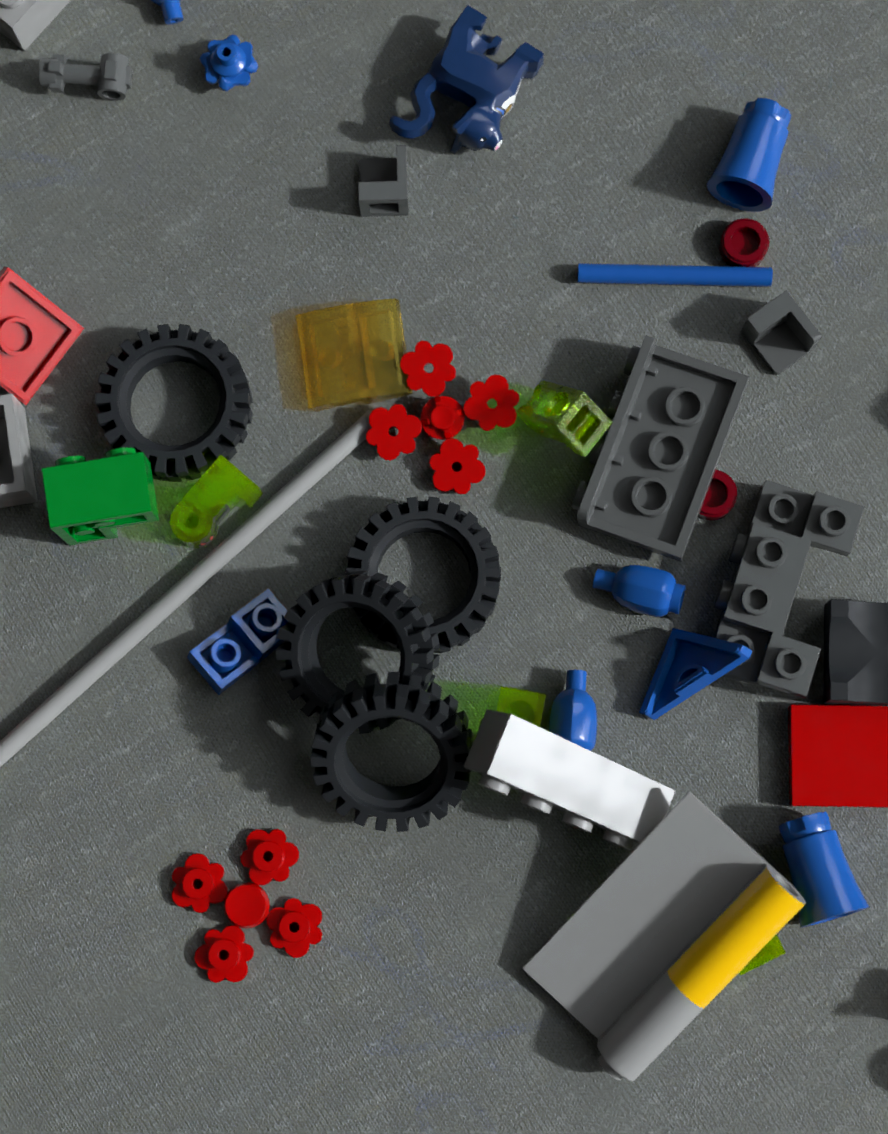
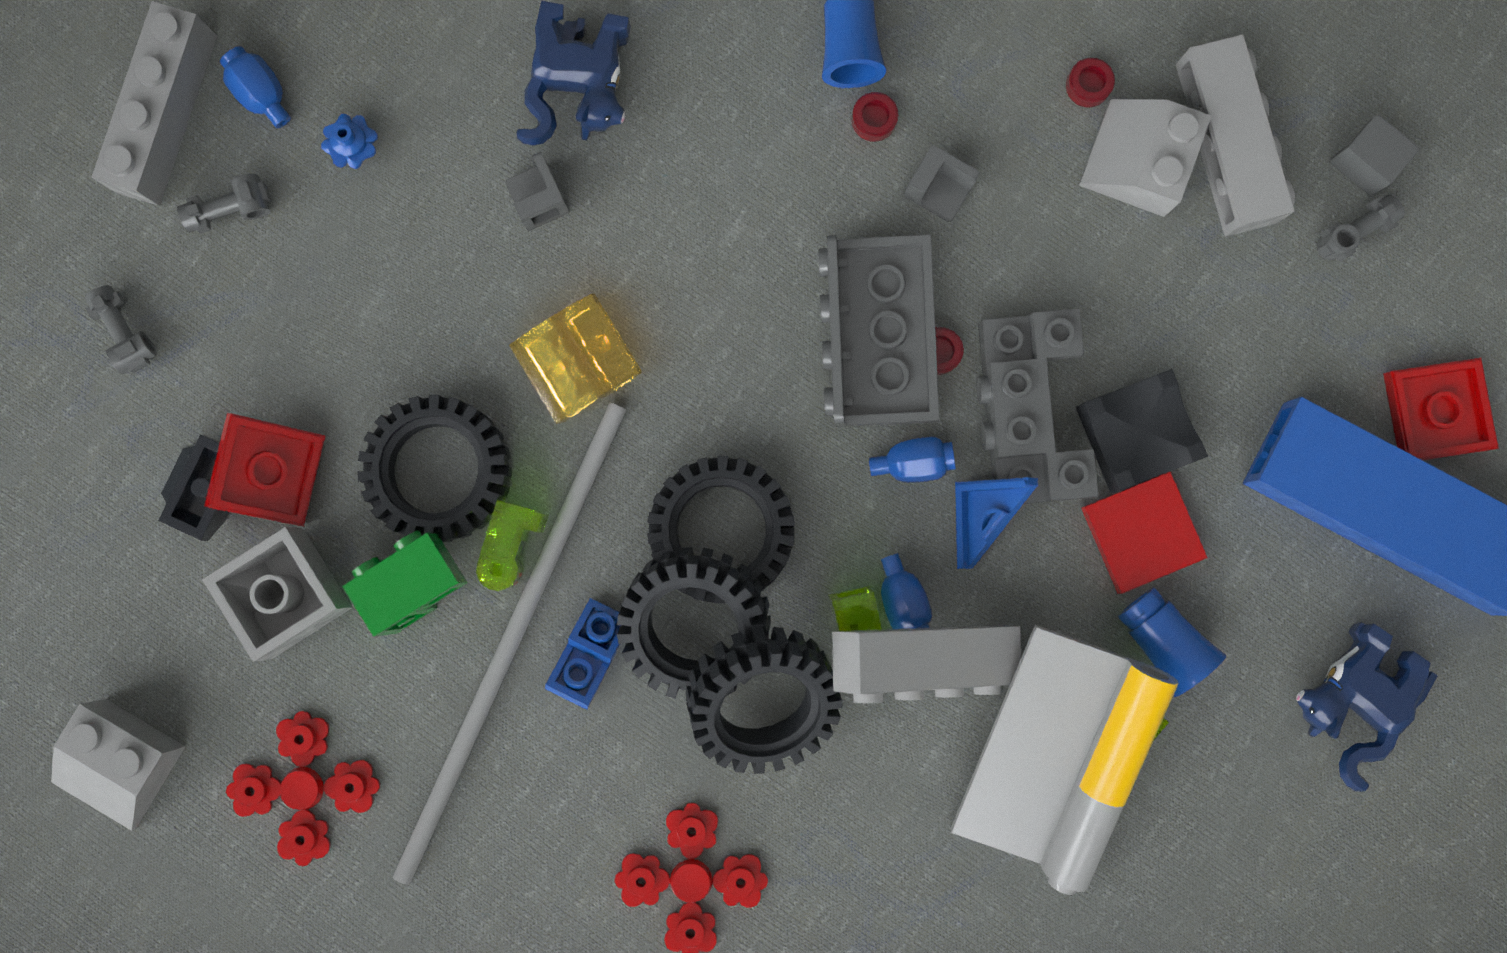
camera: 30 degrees left, 5 degrees up
(442, 417) = (677, 382): red plant -> none
(565, 416) = (786, 338): clear neon green leg -> none
(675, 275) = (826, 169): blue piece -> none

